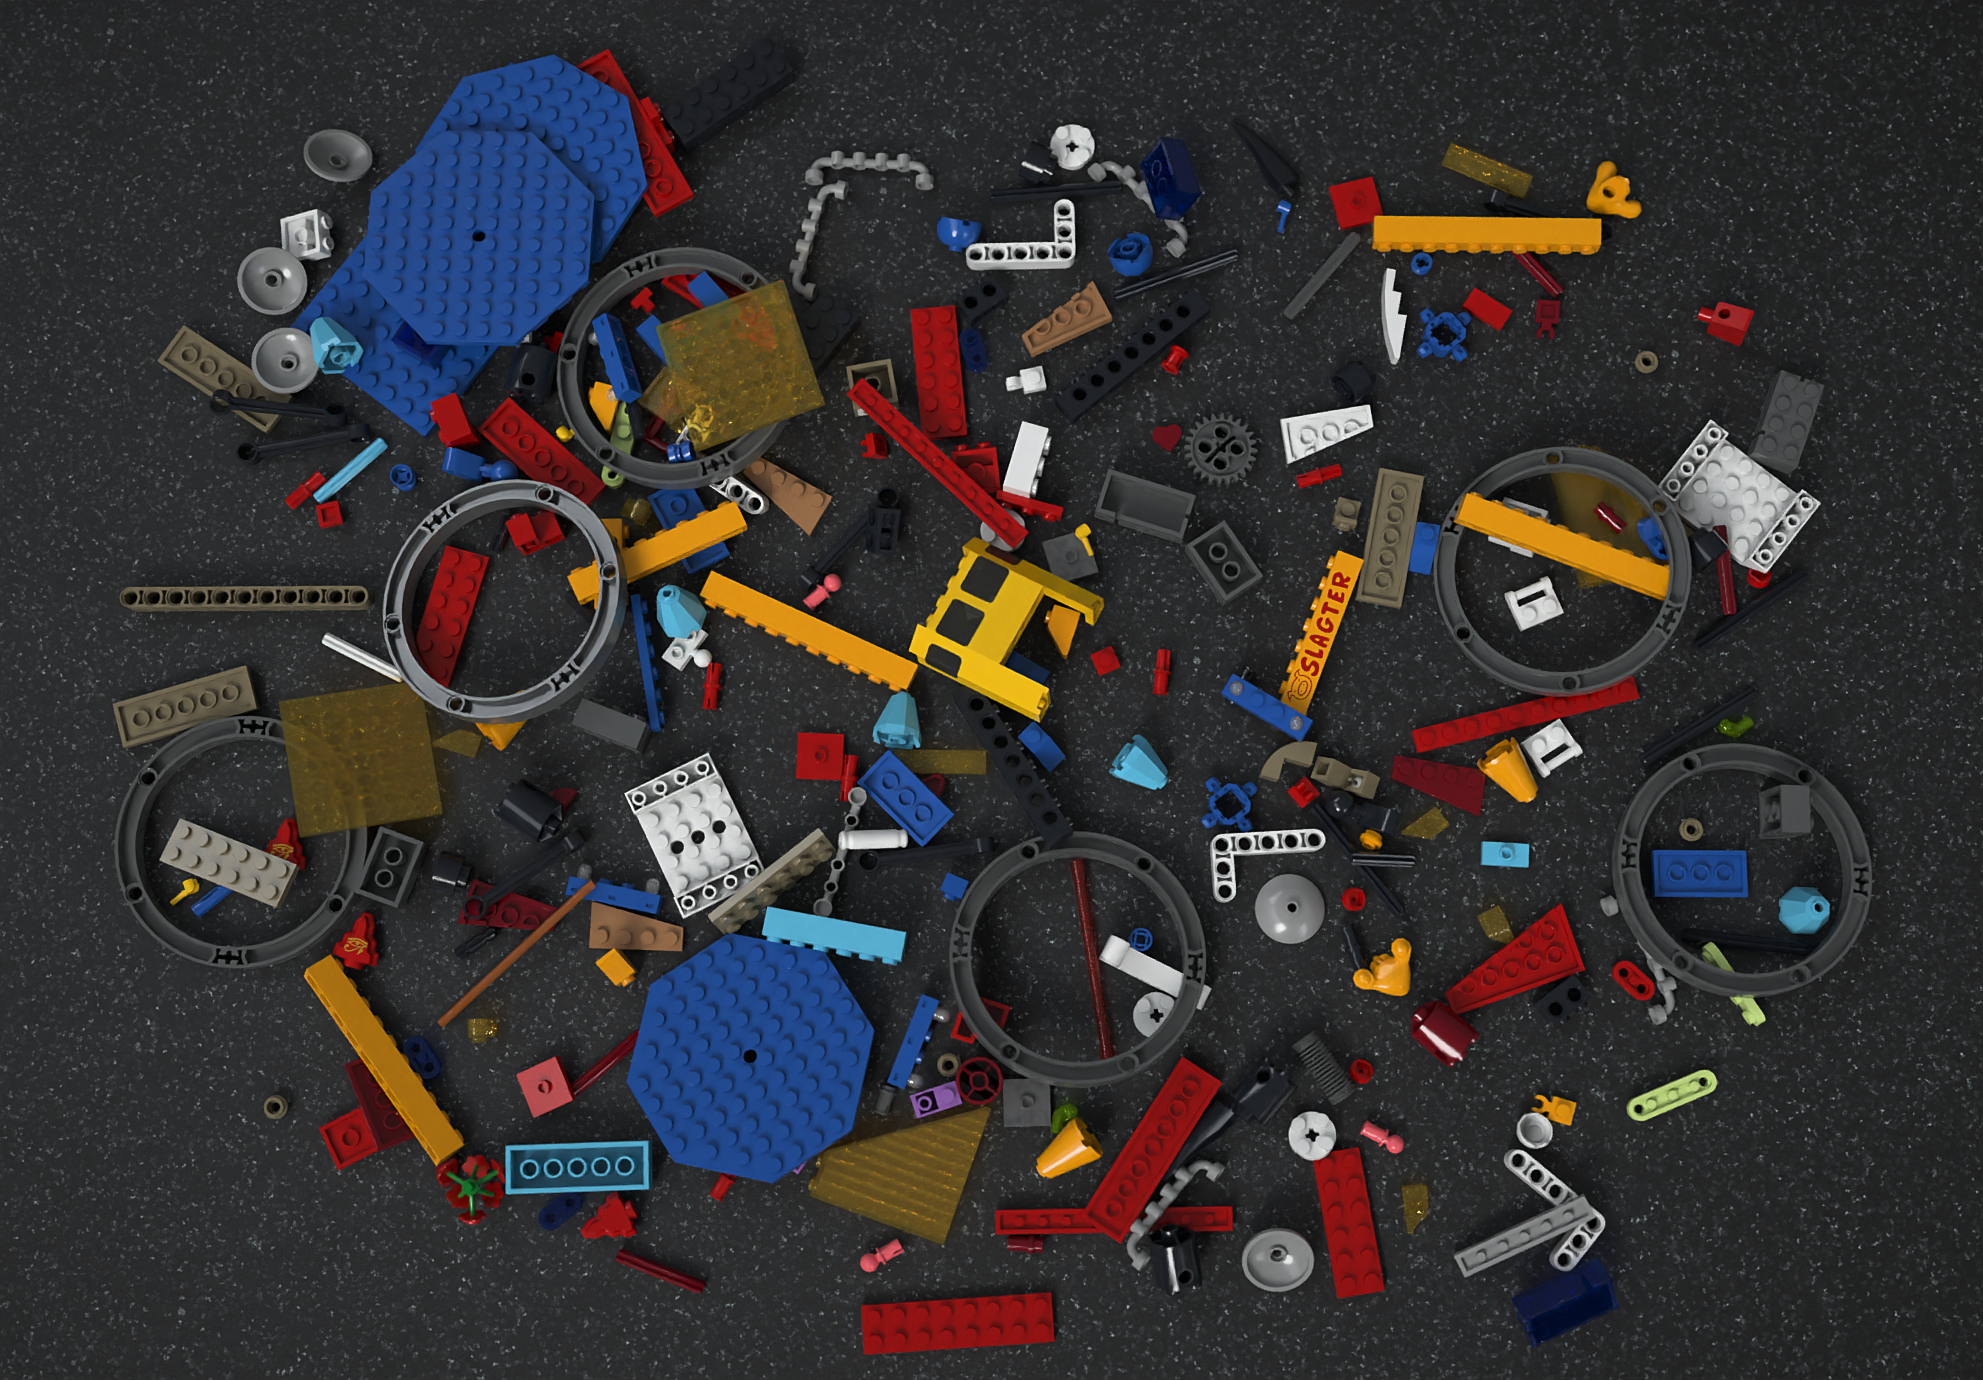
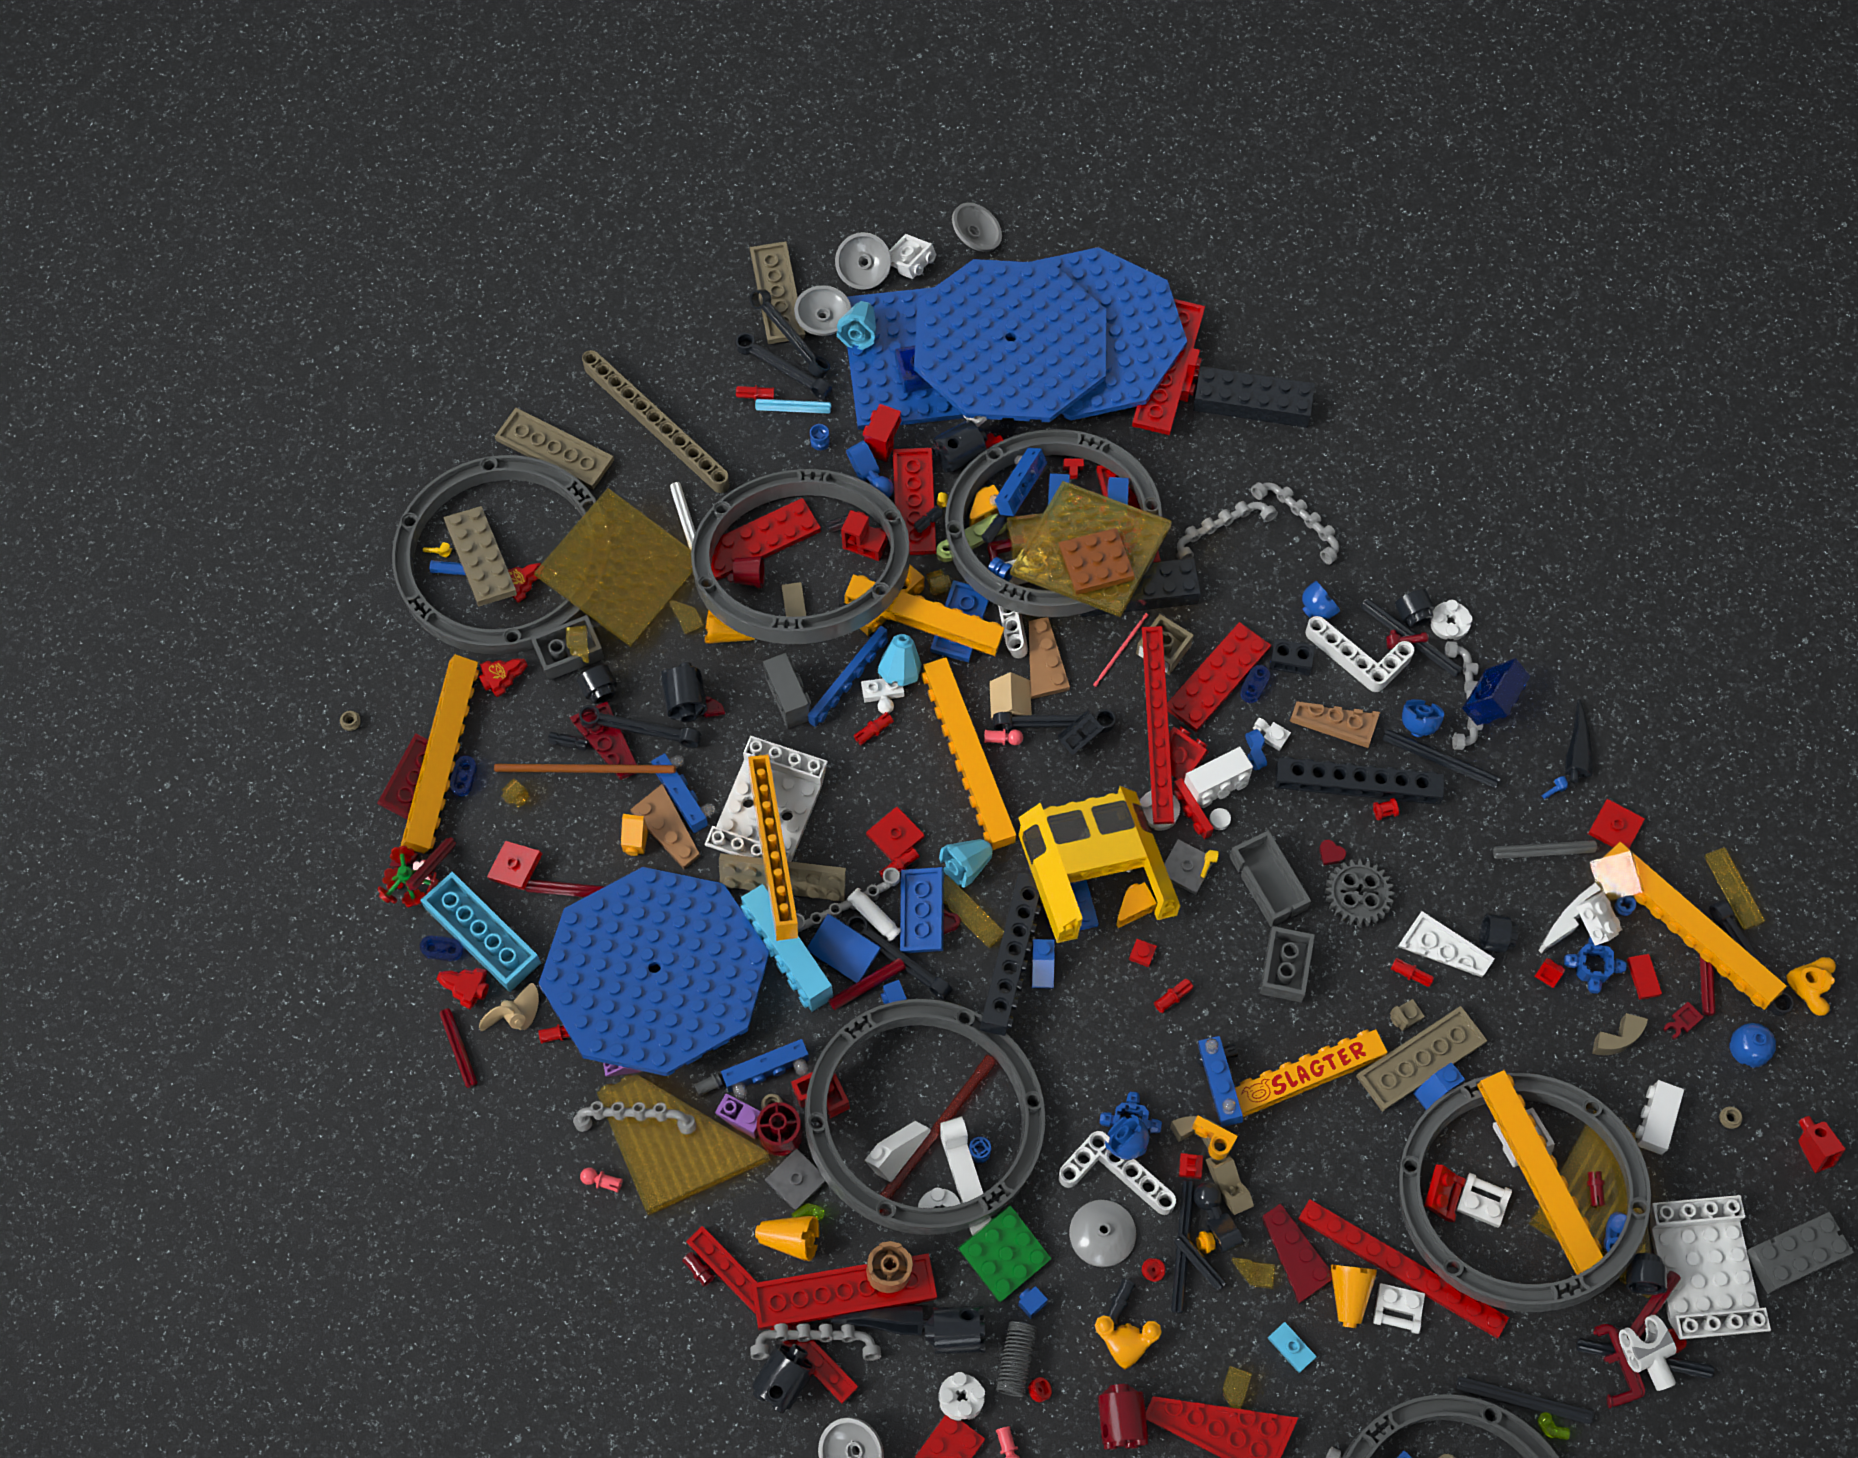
camera: 45 degrees right, 15 degrees down
(330, 514) = (754, 418): red plate -> none
(348, 1138) = (368, 780): red plate -> none
(399, 857) = (578, 642): none -> clear yellow slope
(471, 655) = (748, 571): none -> dark red hat
(481, 1156) = (430, 864): none -> dark red axle
(540, 646) = (793, 600): none -> dark tan tile
(572, 468) = (931, 516): none -> black piece
(678, 1196) = (517, 1013): none -> tan piece
(746, 871) = (773, 848): none -> light orange brick
(758, 374) = (1096, 561): none -> dark orange plate
(793, 552) = (1010, 694): none -> tan slope
(819, 1224) = (584, 1122): none -> light grey bar
(839, 424) = (1120, 649): none -> coral piece
(875, 445) = (1129, 682): red tile -> none
(877, 889) = (843, 948): none -> blue tile
(924, 899) = (867, 983): none -> dark red axle
(957, 1323) = (602, 1275): red plate -> none
(1024, 401) = (1256, 742): none -> blue piece
(1047, 206) = (1393, 639): none -> dark red piece
(1056, 492) = (1220, 819): none -> white tile
(1080, 1005) = (895, 1151): none -> white slope
(1140, 765) = (1096, 1038): medium azure cone -> none
(1183, 1099) = (889, 1280): none -> medium nougat brick
(1237, 999) = (1004, 1253): none -> green plate
(1245, 822) = (1128, 1138): none -> blue cylinder
(1292, 1013) = (1032, 1301): none -> blue plate
(1293, 756) = (1217, 1134): none -> light orange plate
(1398, 247) = (1617, 875): none -> clear yellow plate
(1417, 295) = (1599, 918): none -> white plate
(1418, 374) = (1550, 972): none -> red tile
(1504, 628) = (1440, 1190): none -> red plate
(1518, 367) = (1629, 1031): none -> dark tan brick
(1598, 413) = (1659, 1117): none -> white brick
(1611, 287) = (1753, 1044): none -> blue cylinder
(1744, 627) = (1633, 1378): none -> dark red piece
(1755, 603) = (1651, 1352): none -> white connector

